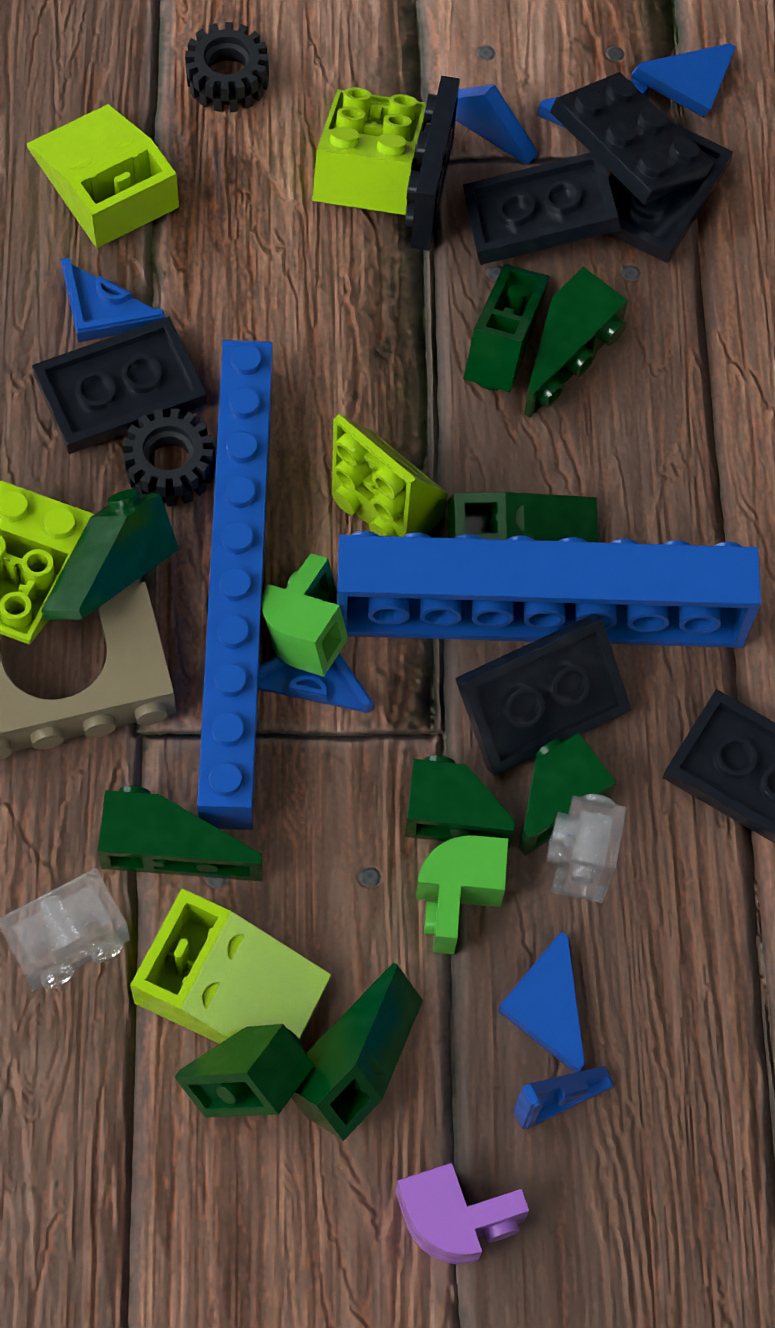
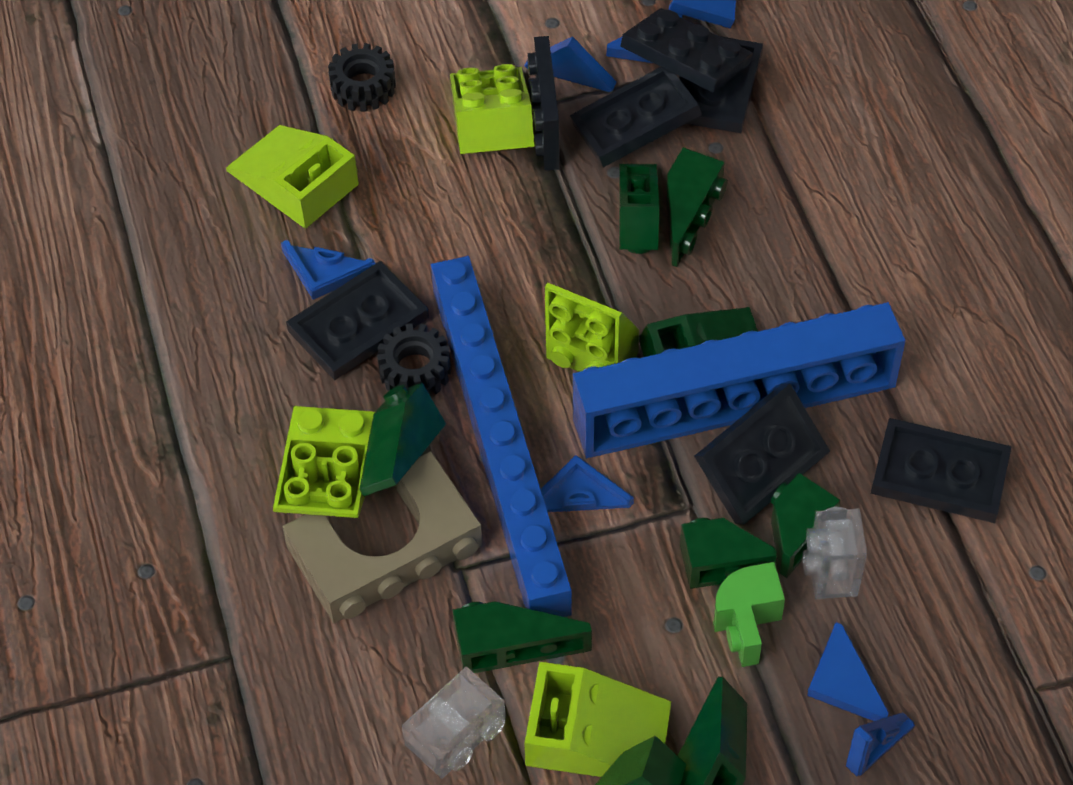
camera: 10 degrees left, 10 degrees down
(302, 621) = (560, 449): bright green brick -> none

